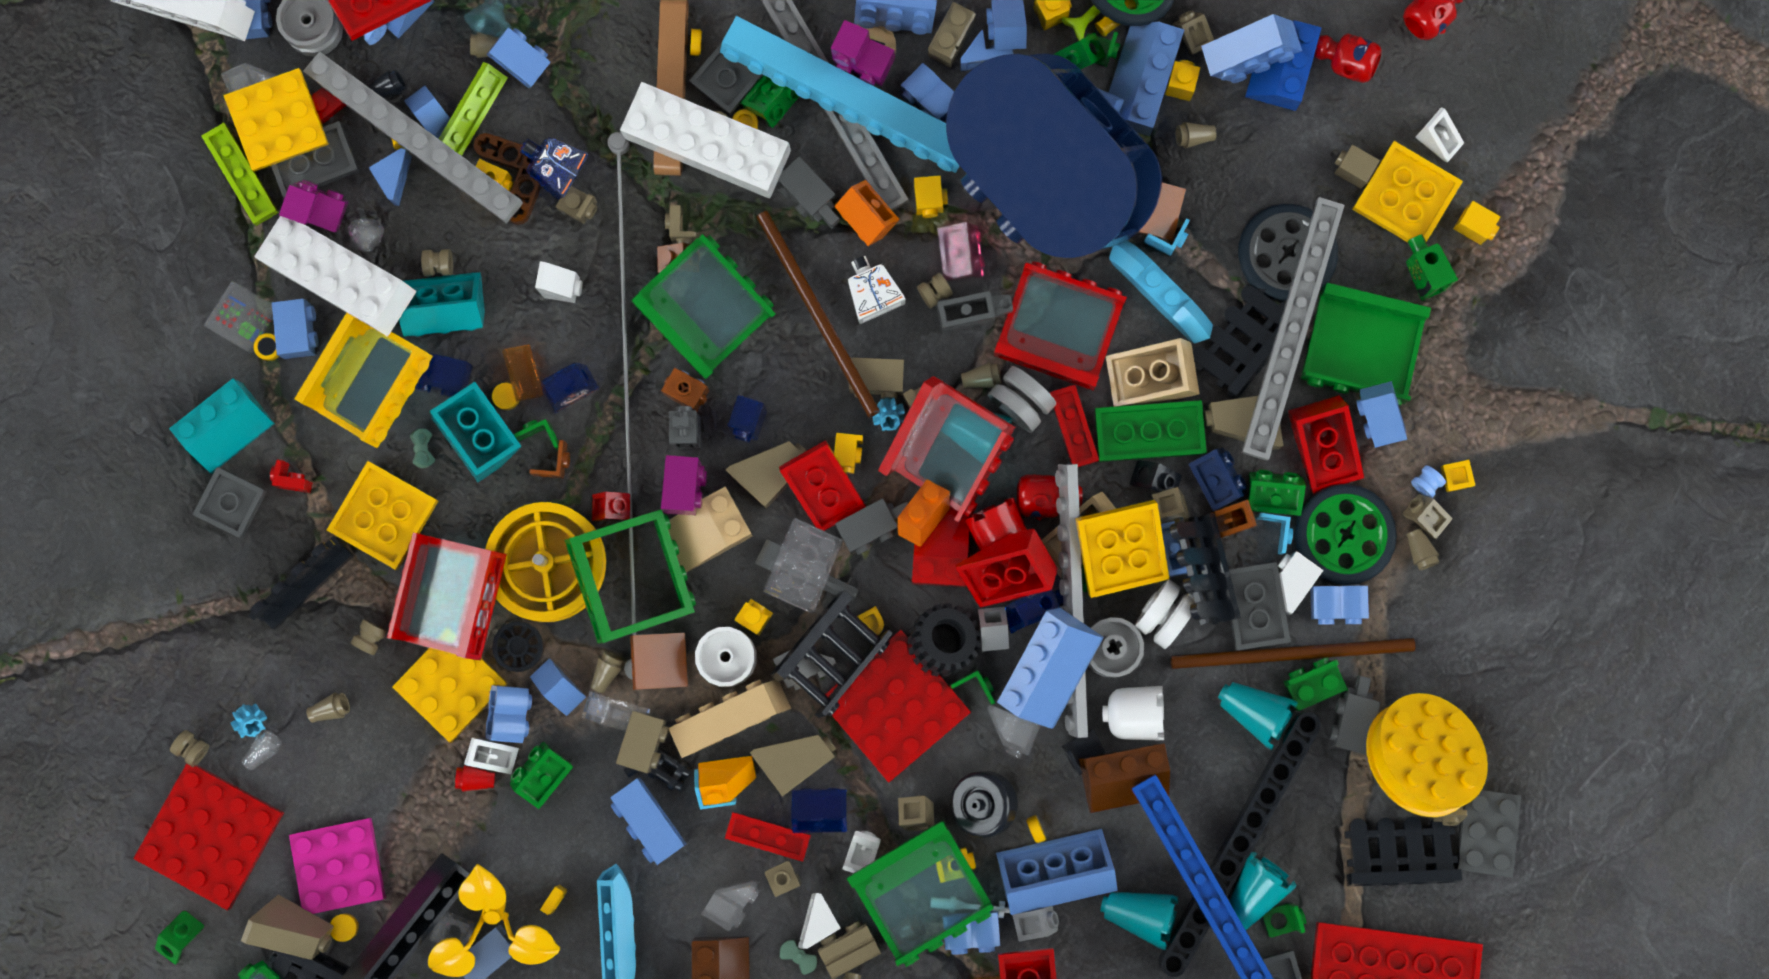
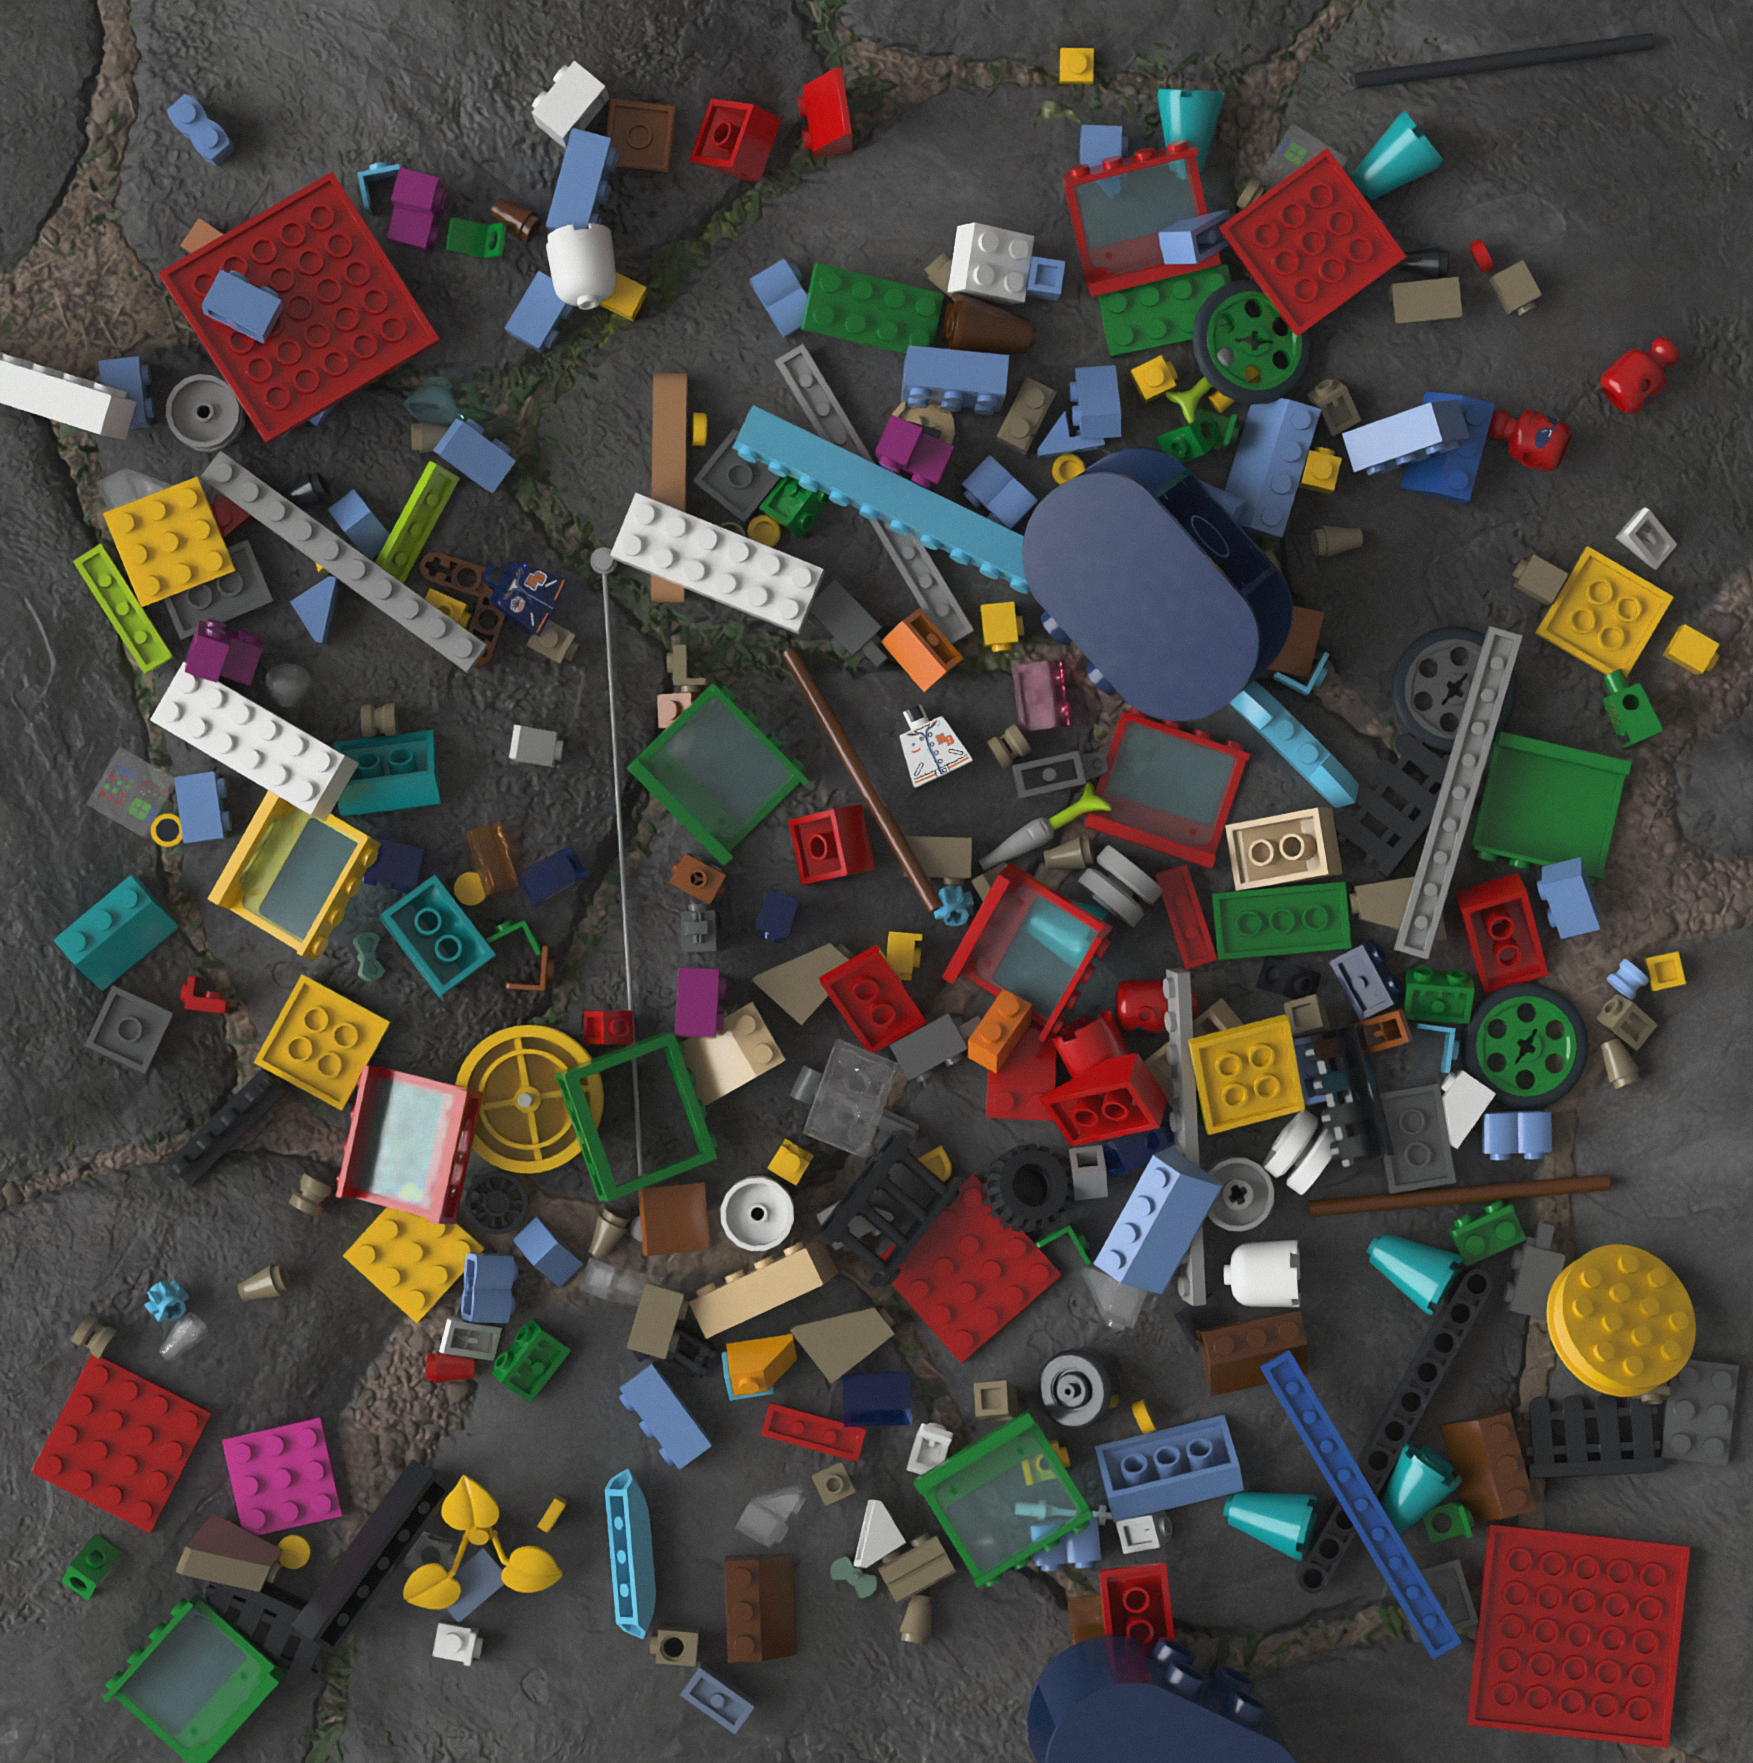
camera: 10 degrees left, 5 degrees up
(792, 365) = (831, 844): none -> red slope
(960, 356) = (1042, 829): none -> light grey piece
(1319, 873) = (1490, 1464): none -> reddish brown slope

